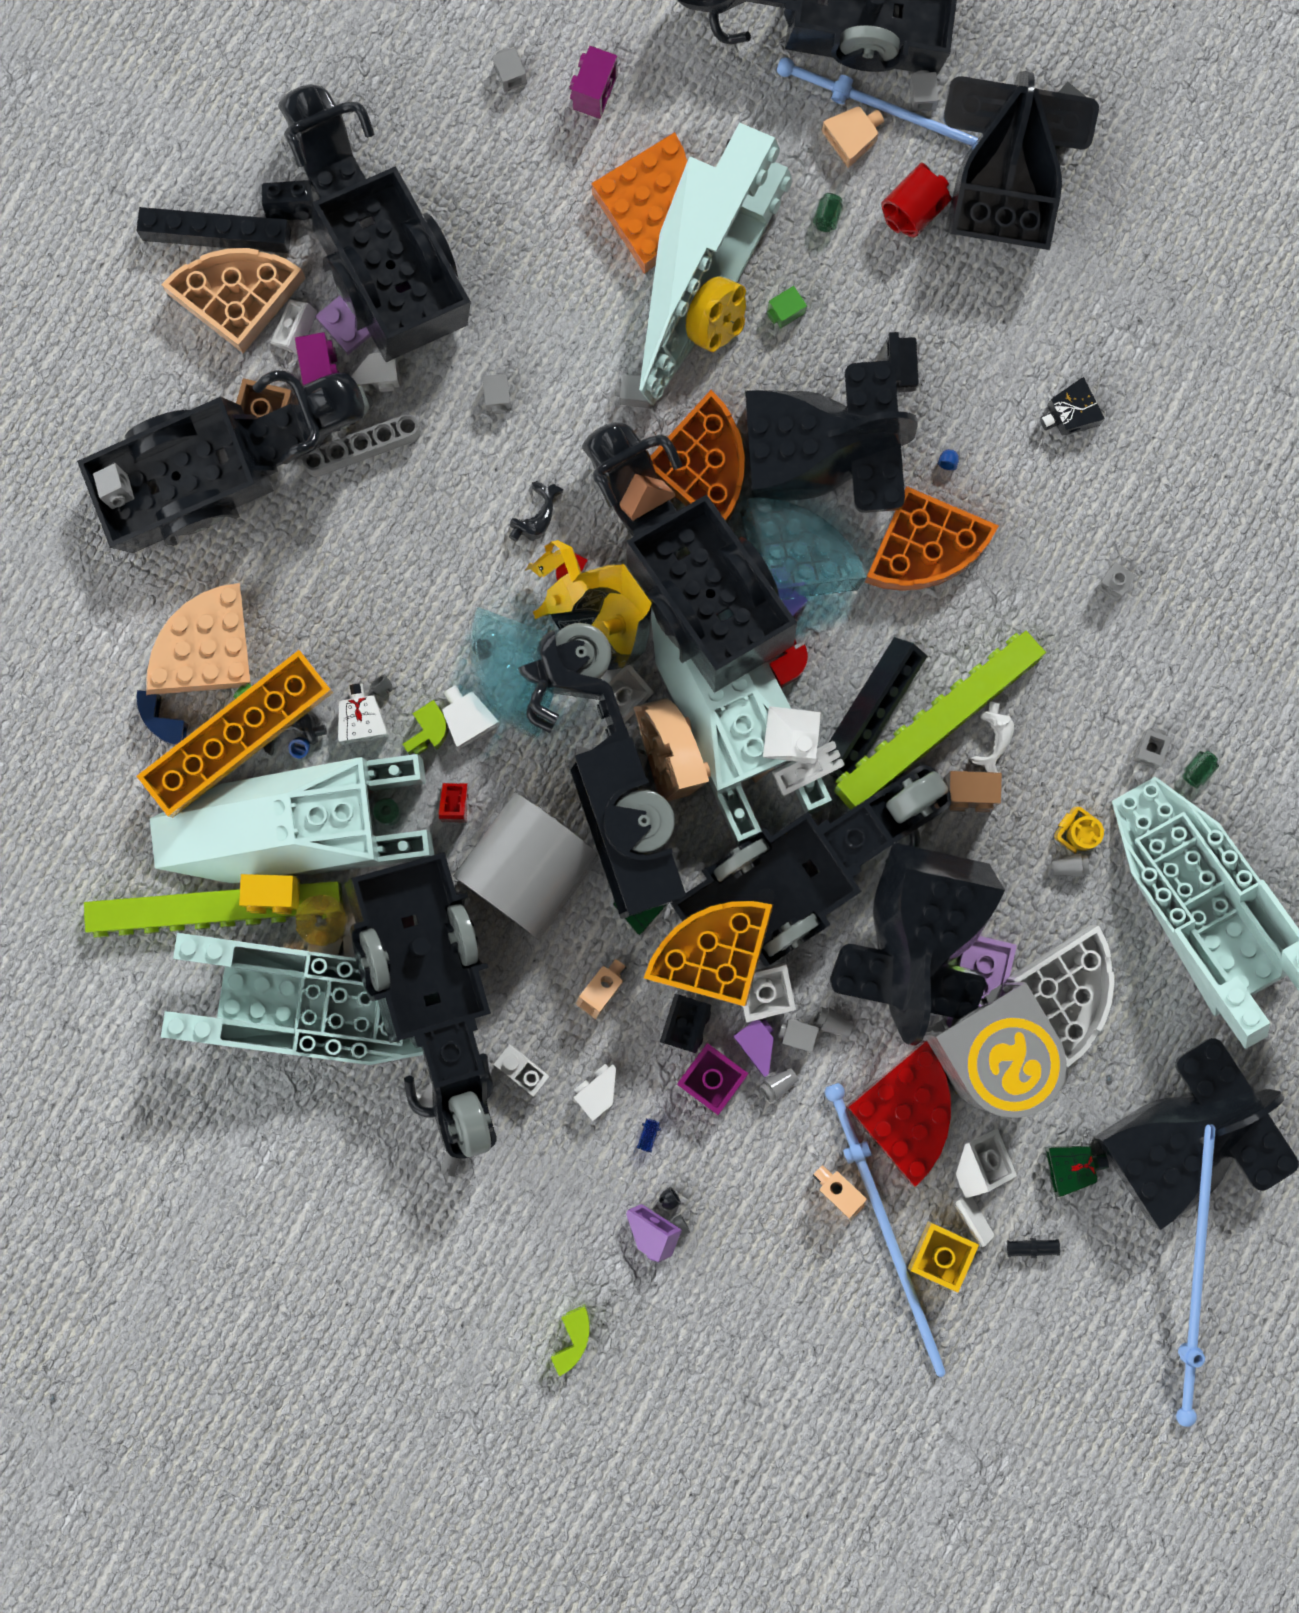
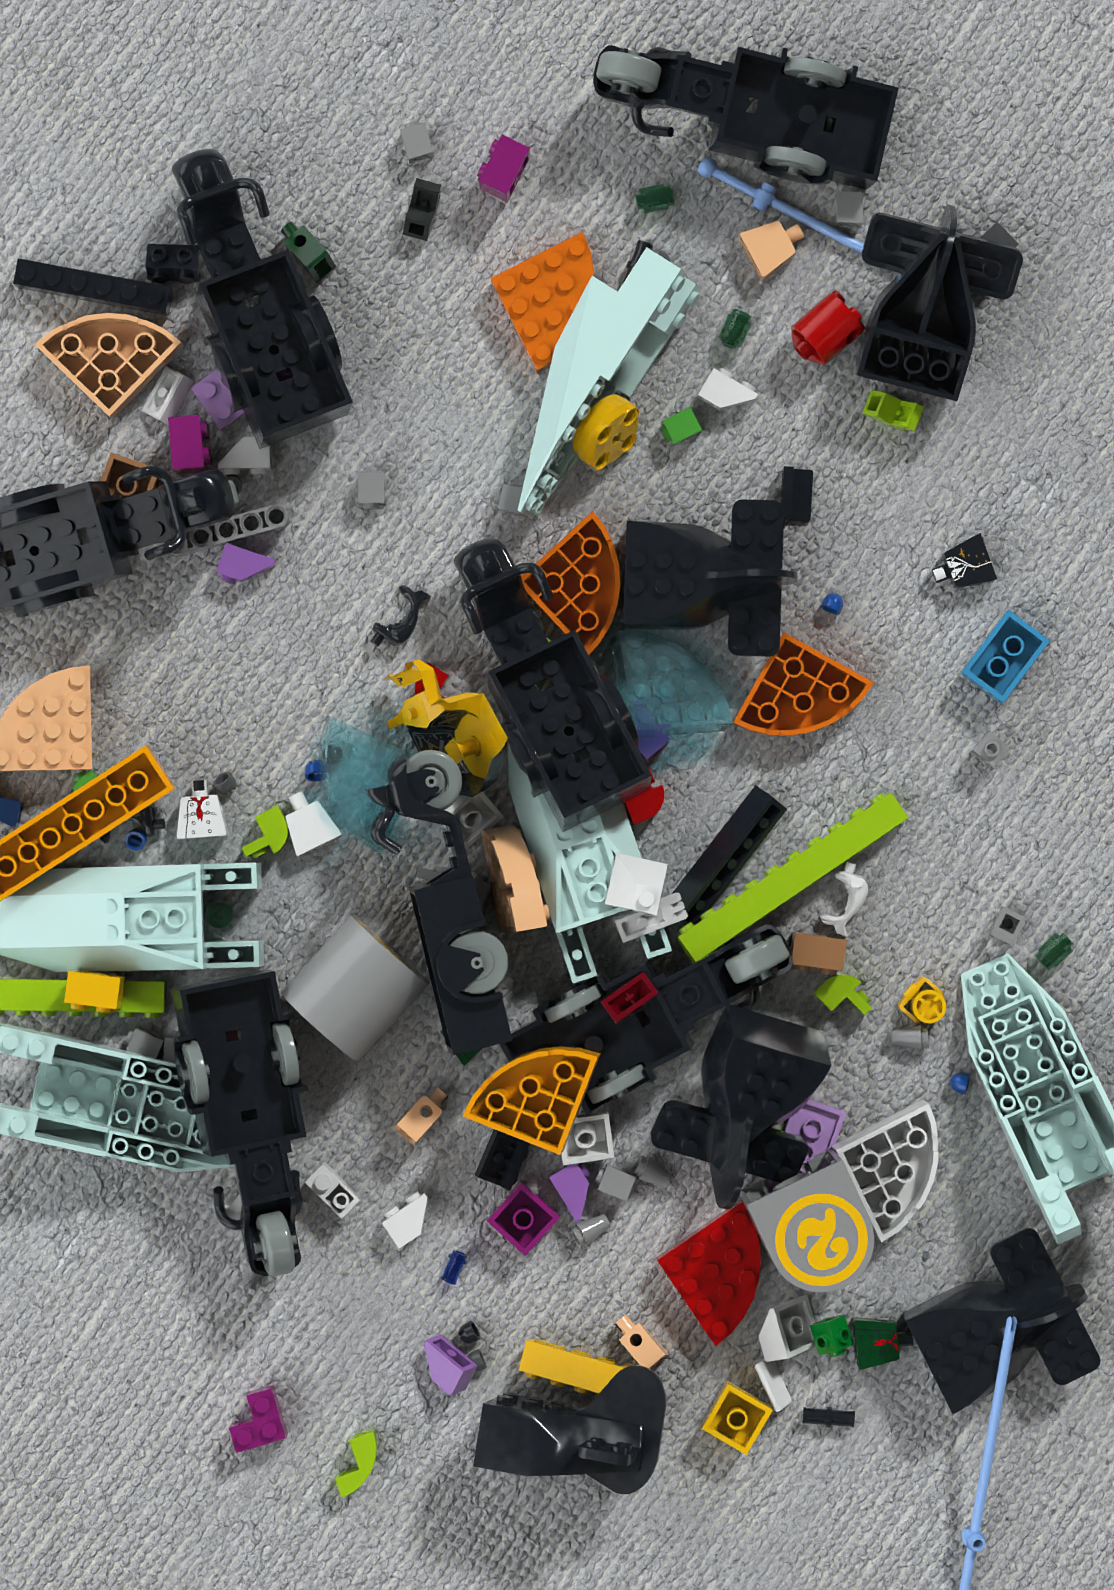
camera: 10 degrees right, 5 degrees up
(306, 920) = (129, 1020): clear yellow plate -> none
(379, 475) = (242, 564): none -> medium lavender slope
(418, 177) = (307, 251): none -> dark green torso
(453, 802) = (288, 911): red slope -> none
(461, 666) = (311, 769): none -> blue hinge
(477, 1308) = (266, 1422): none -> magenta brick
(520, 127) = (422, 209): none -> pearl dark grey brick
(644, 495) = (513, 618): nougat slope -> none
(739, 99) = (654, 198): none -> clear green brick
(779, 1224) = (567, 1367): none -> yellow wedge
(797, 846) = (630, 998): none -> dark red slope
(822, 1289) = (609, 1440): none -> black brick
(824, 271) = (724, 392): none -> white slope
(857, 1153) = (663, 1305): light blue bar -> none
(986, 274) = (892, 411): none -> lime brick
(999, 823) = (841, 986): none -> lime brick
(1027, 1166) = (831, 1335): none -> green brick
(1120, 491) = (1004, 656): none -> dark azure brick
(1124, 905) = (959, 1082): none -> blue hinge

